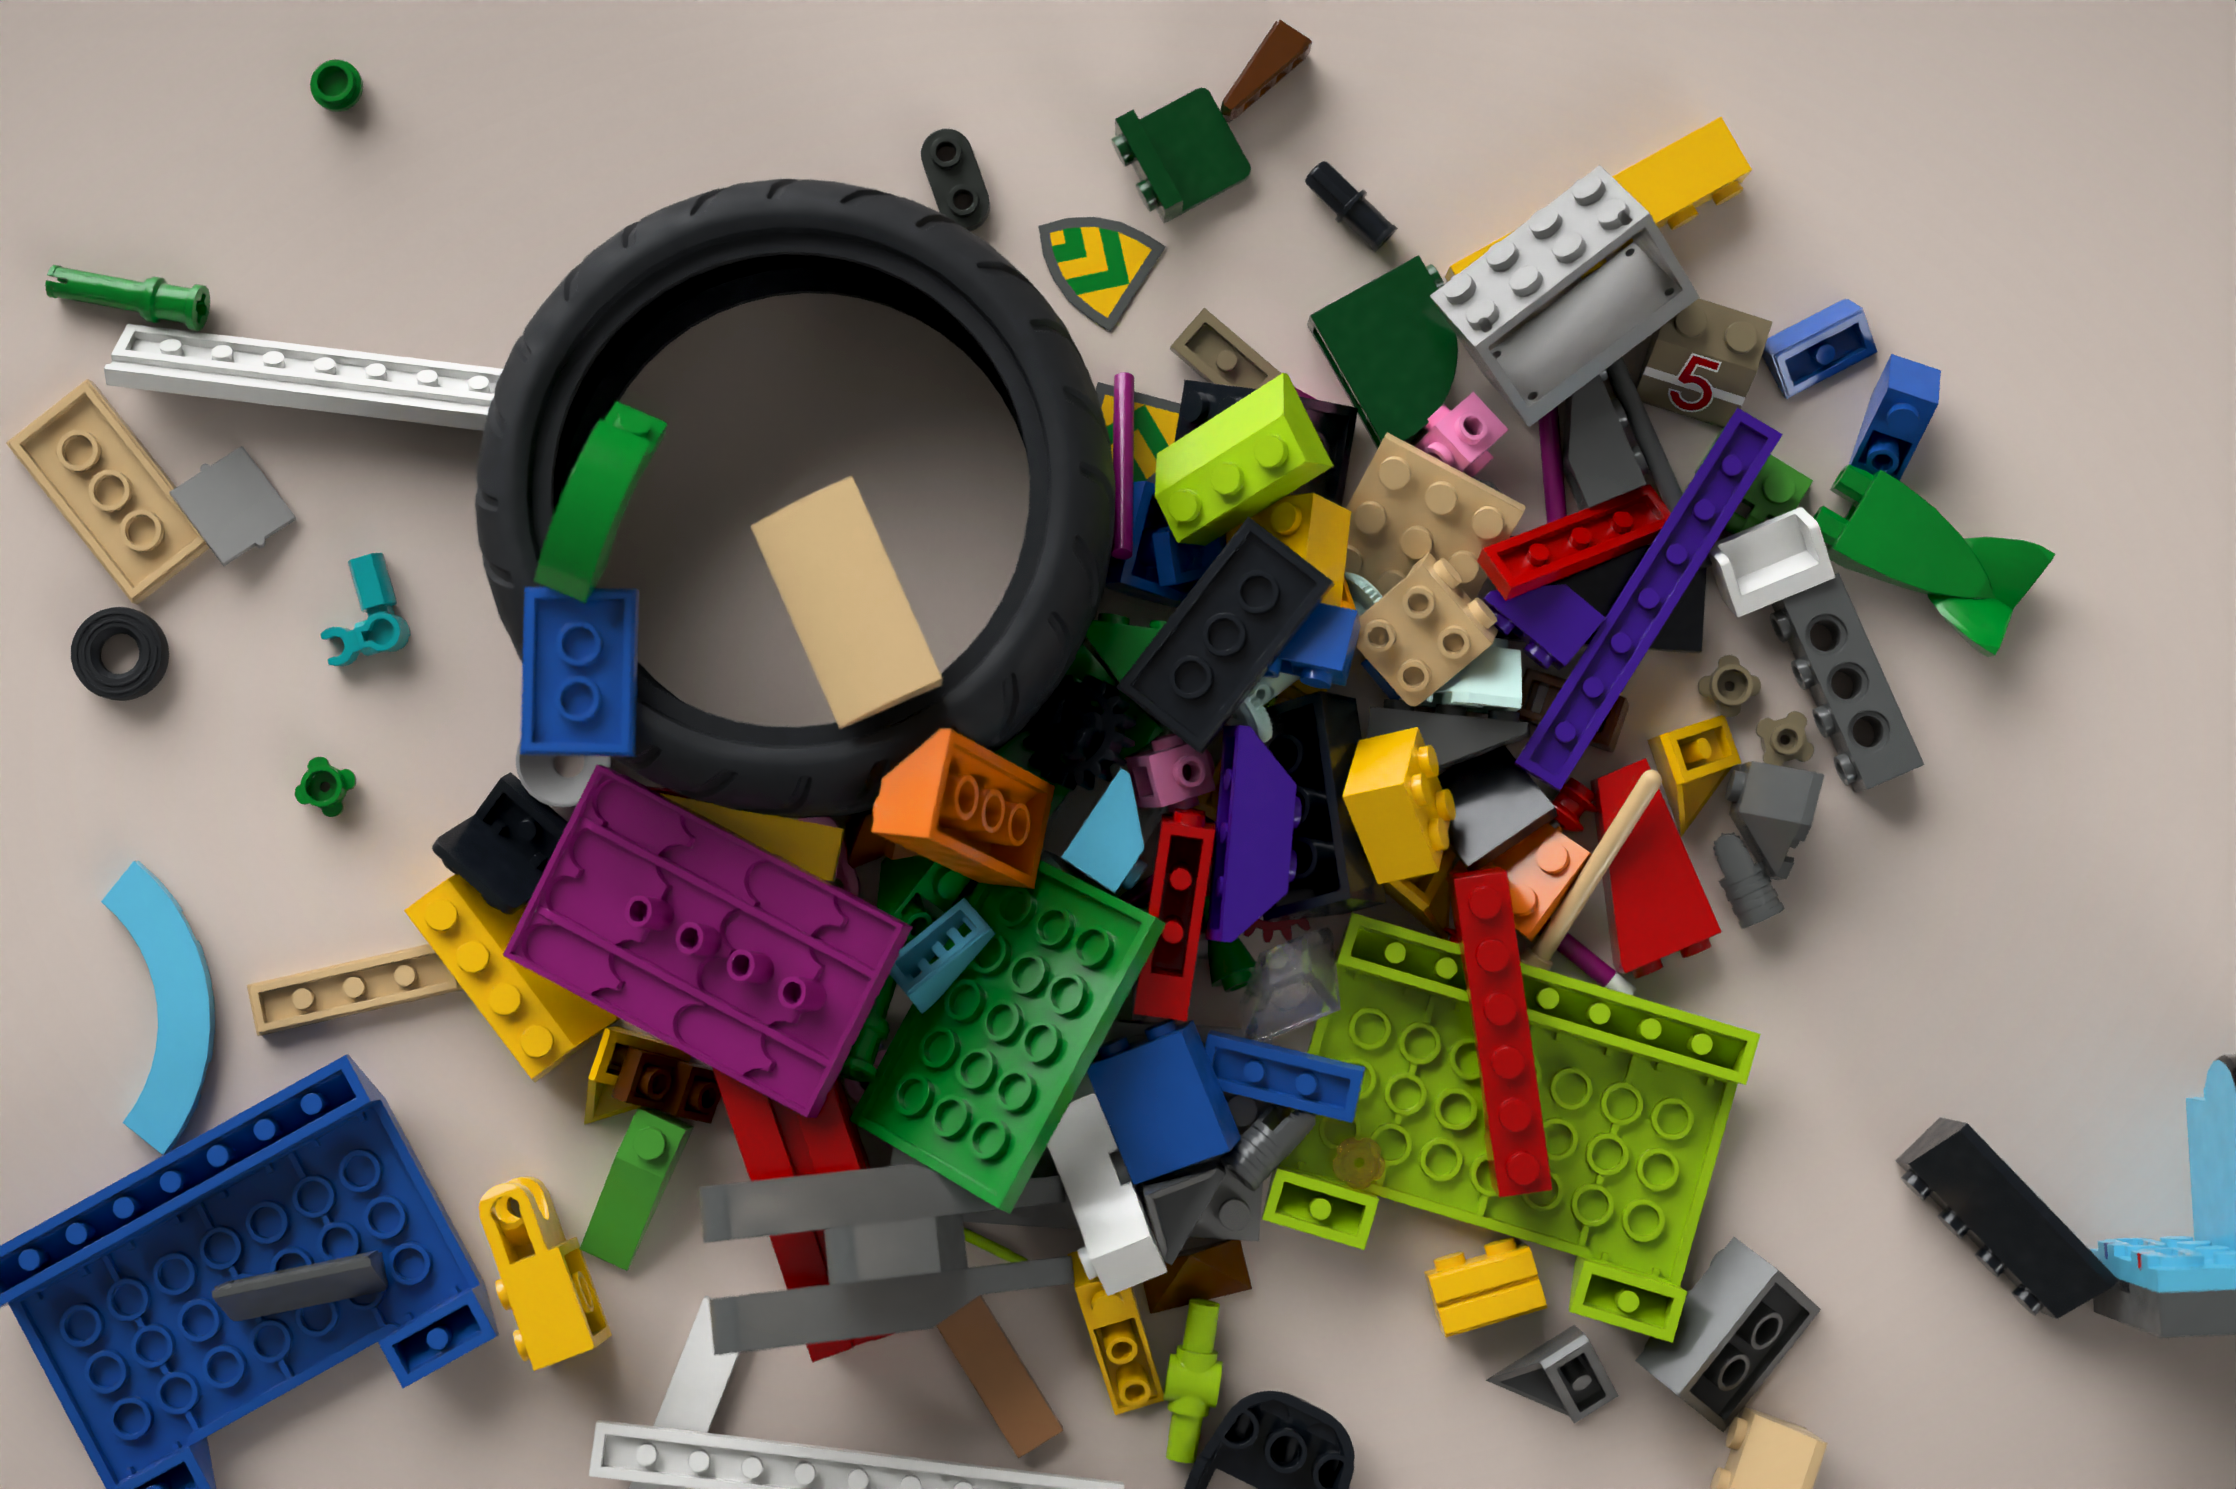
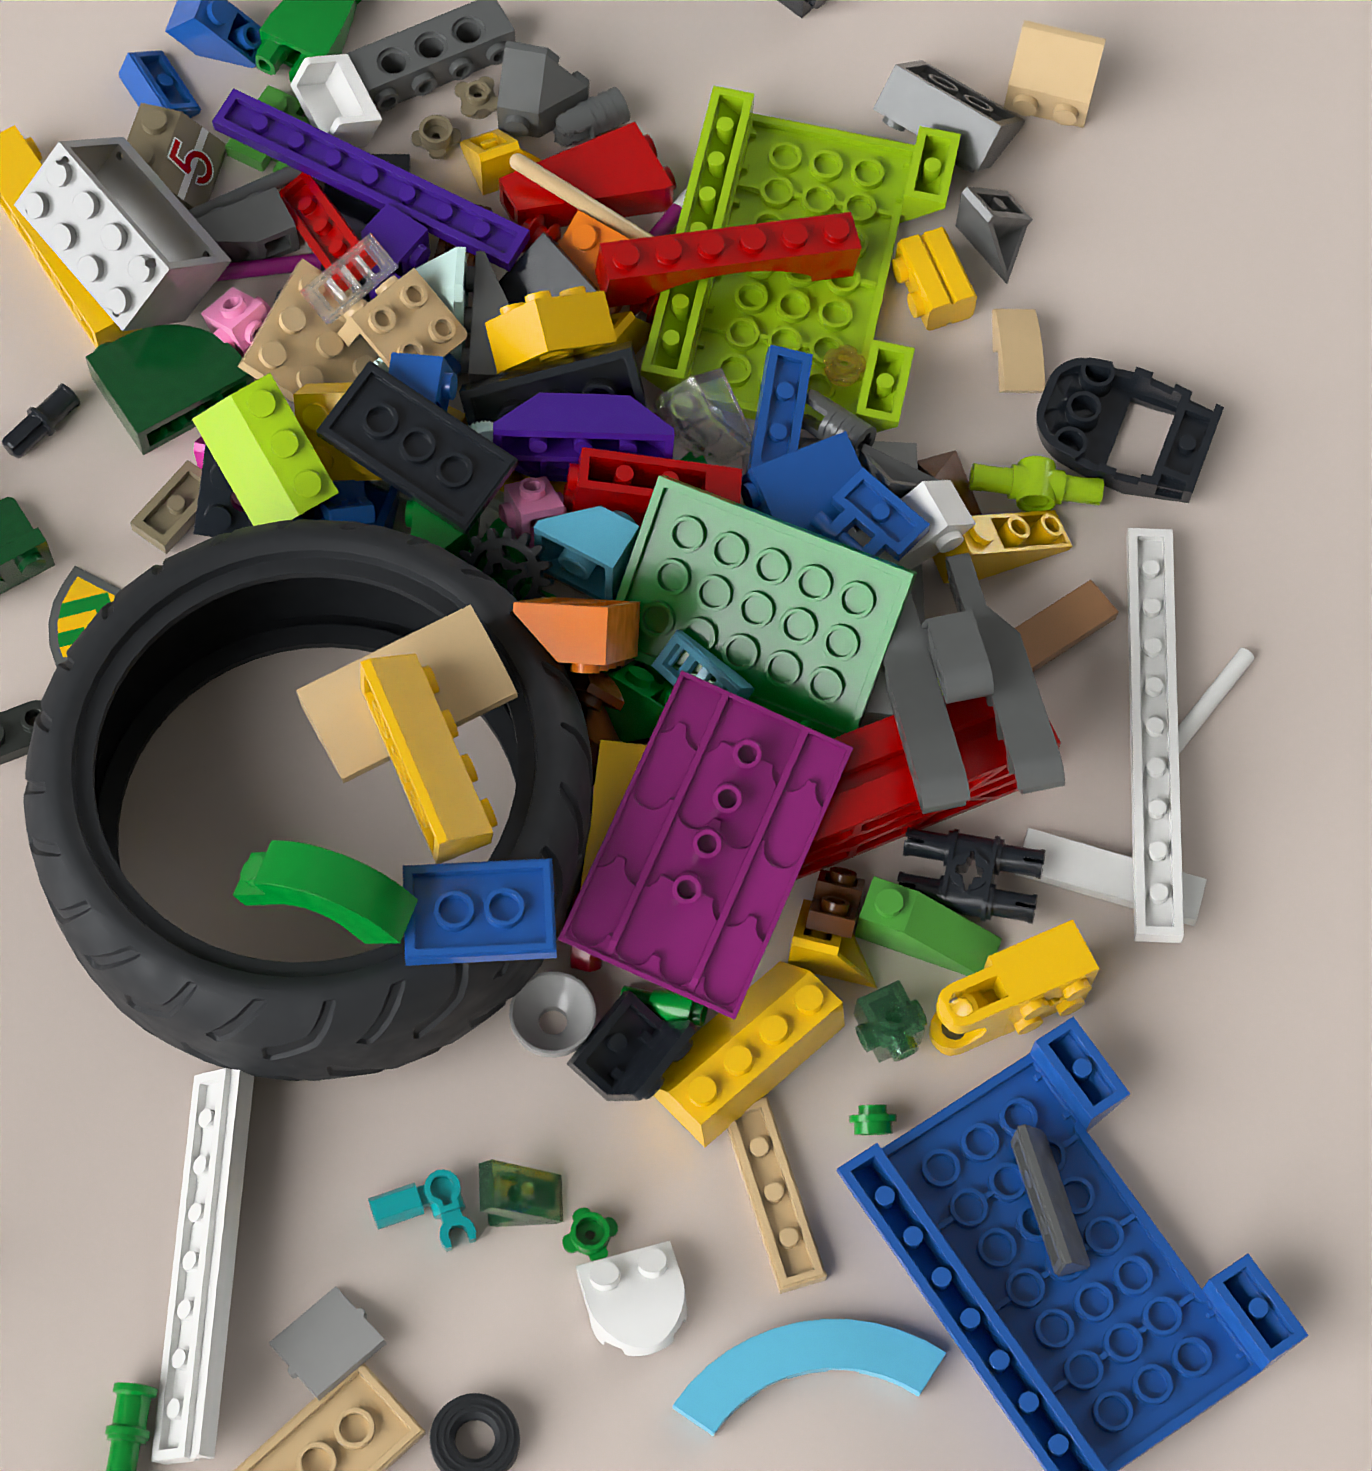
camera: 100 degrees left, 20 degrees down
(250, 829) = (635, 1298): none -> white slope
(367, 713) = (519, 1195): none -> clear green slope
(420, 1102) = (872, 1120): none -> green plate
(541, 1128) = (890, 1023): none -> clear green brick
(667, 1253) = (990, 858): none -> black pin
(741, 618) = (425, 755): none -> yellow slope
(1110, 1180) = (877, 513): none -> blue plate
(1378, 1382) = (1019, 350): none -> tan slope
(1442, 548) = (317, 300): none -> clear slope

